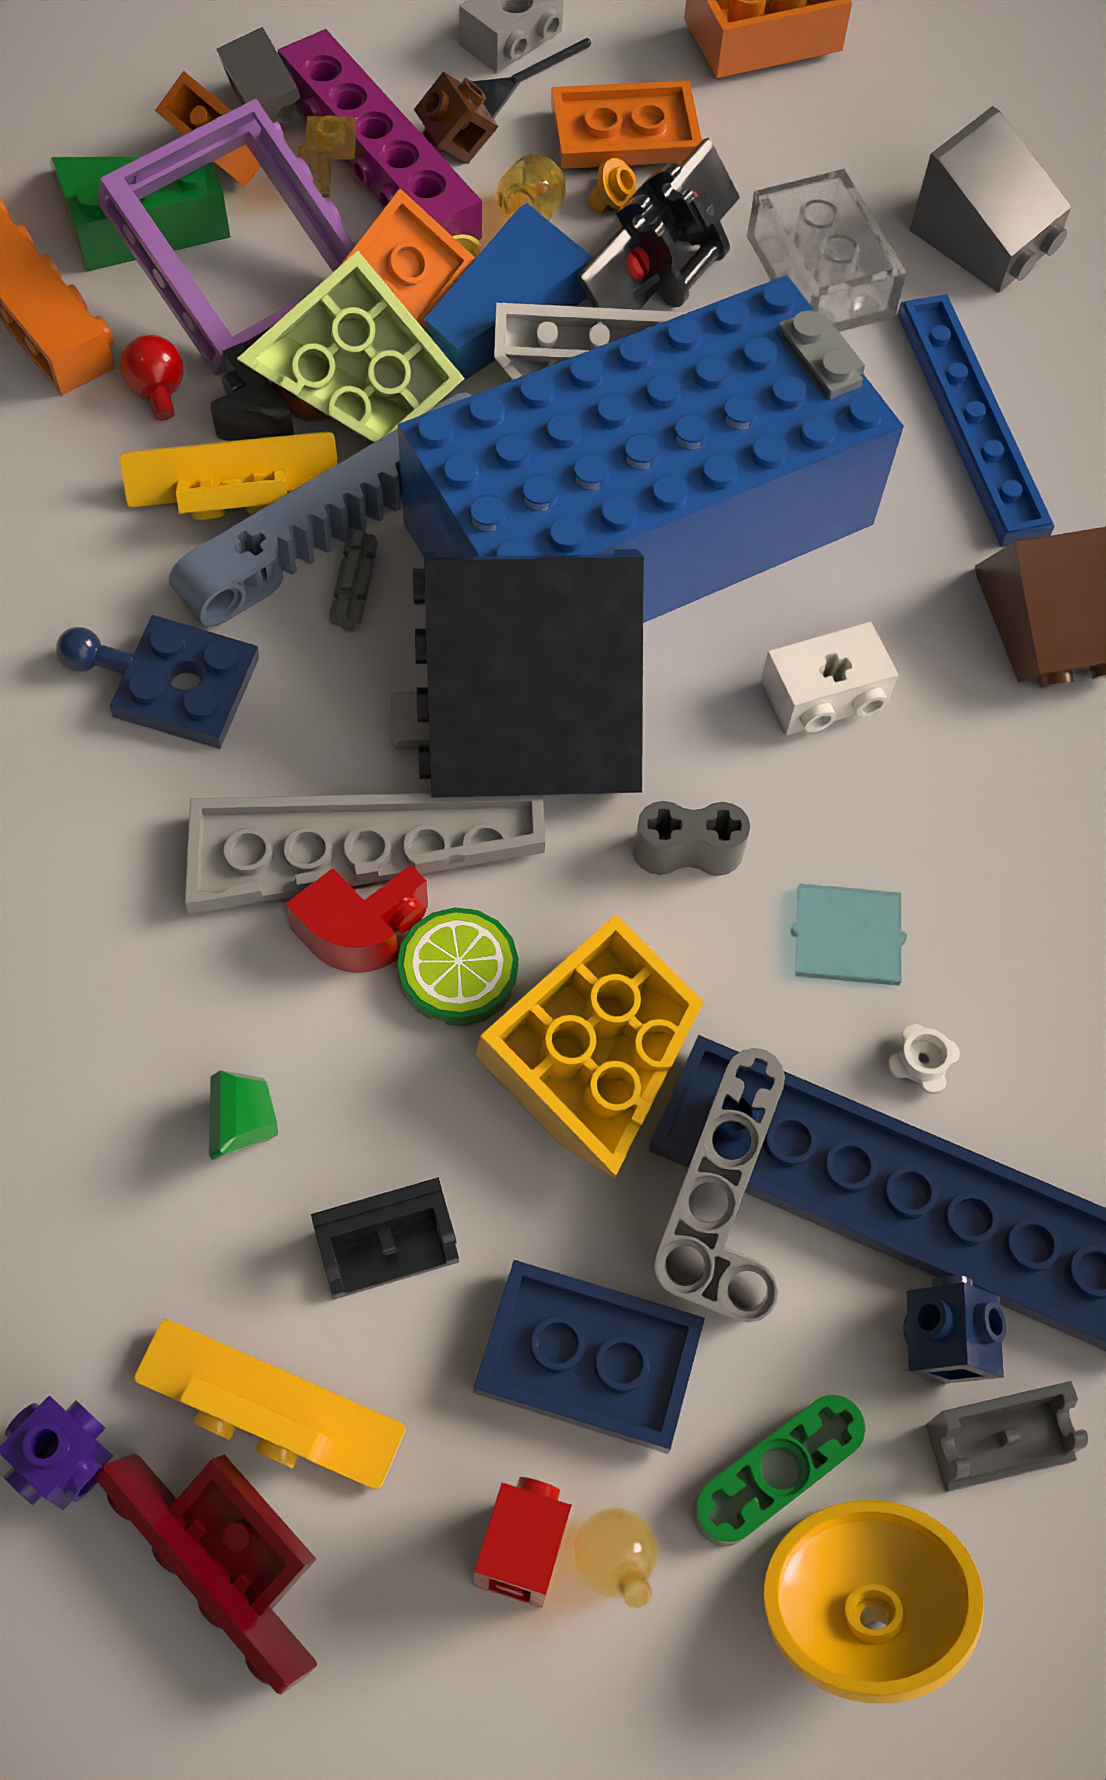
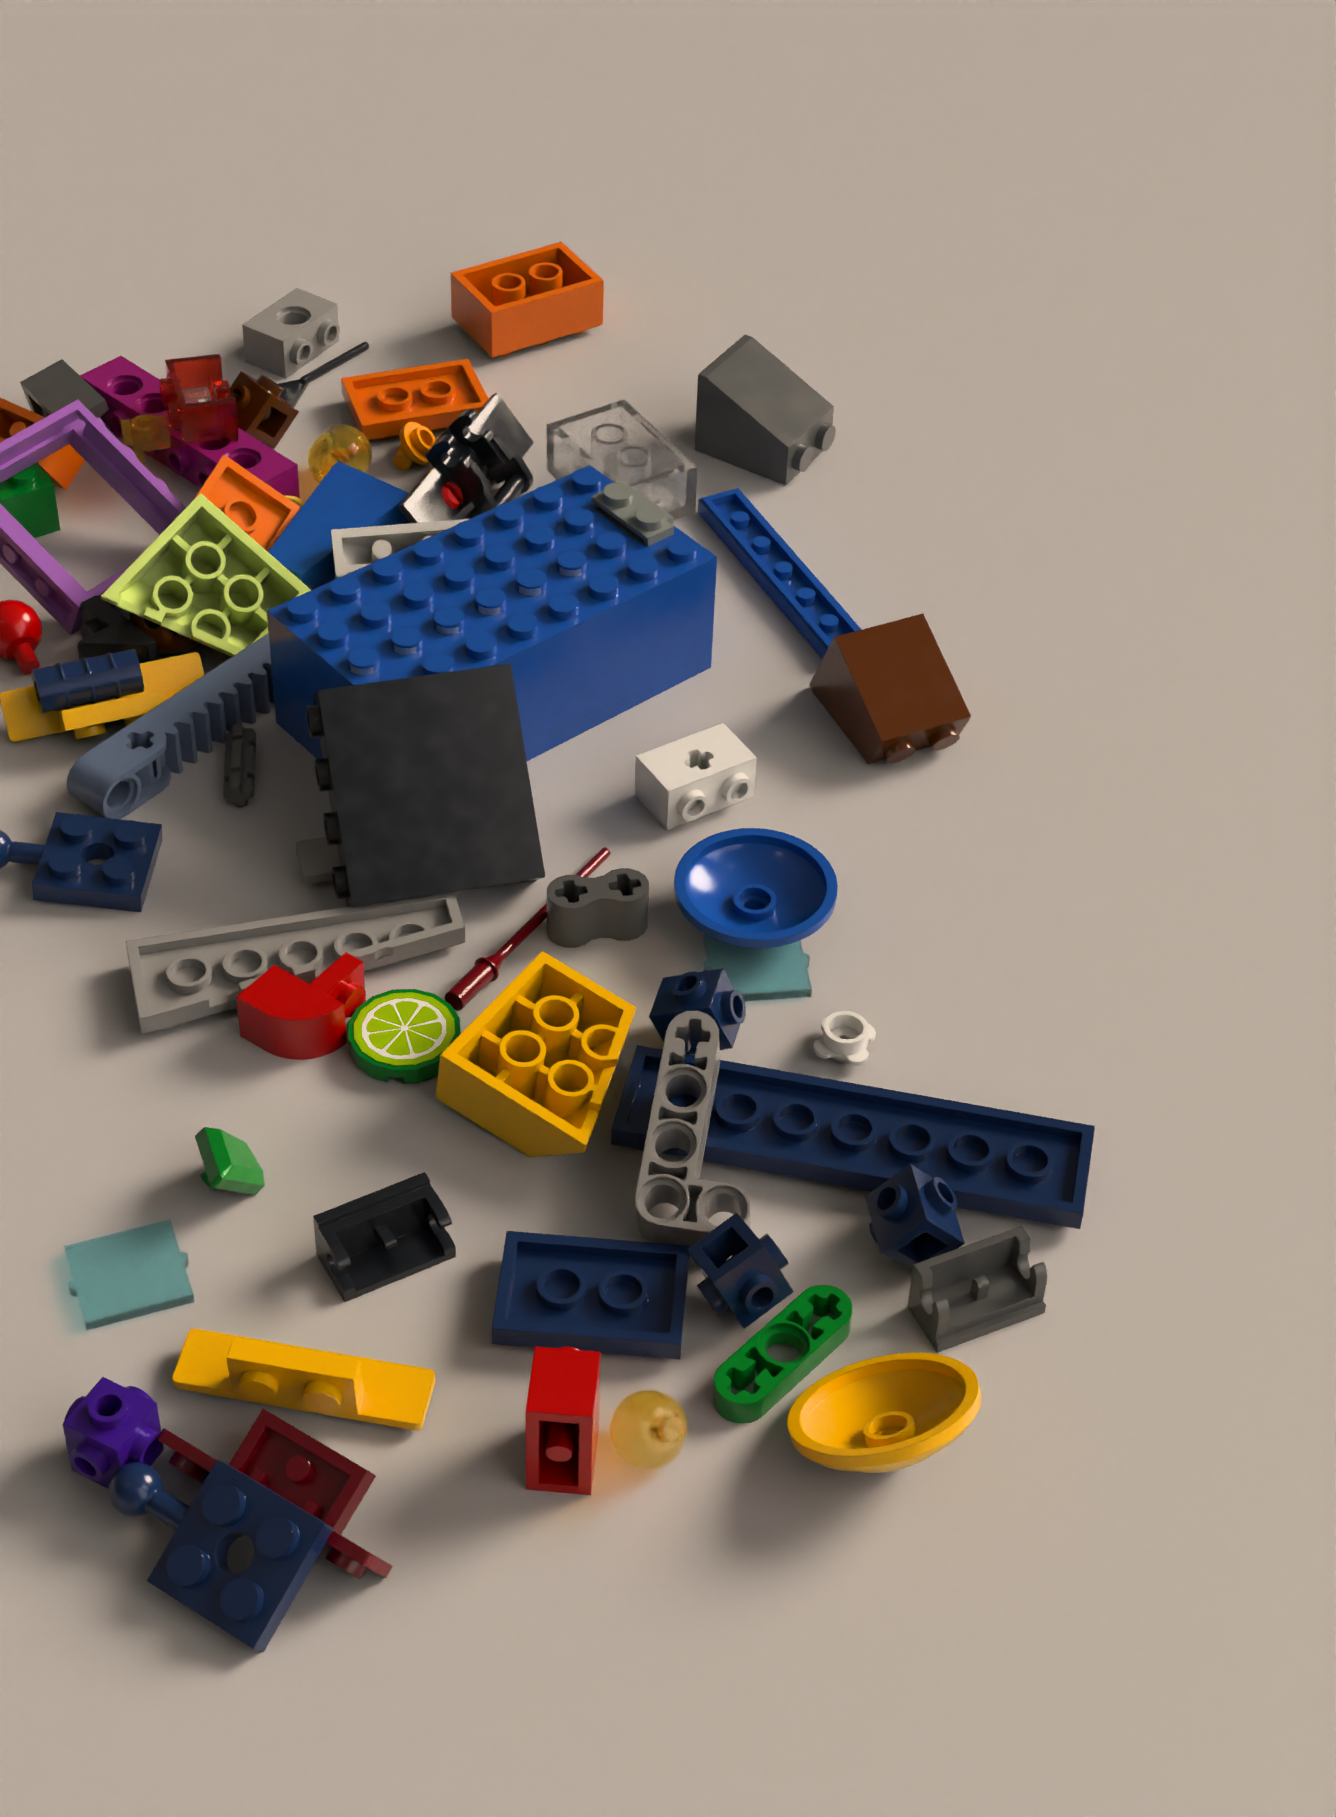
camera: 10 degrees left, 20 degrees down
(109, 1633) = (195, 1559): none -> dark blue plate
(118, 1223) = (128, 1274): none -> clear light blue piece
(209, 457) = (87, 680): none -> dark blue axle
(393, 104) = (199, 399): none -> clear red window
(561, 892) = (487, 968): none -> dark red piece
(752, 1373) = (746, 1282): none -> dark blue brick
(771, 1005) = (703, 992): none -> dark blue brick
(869, 823) = (755, 888): none -> blue dish

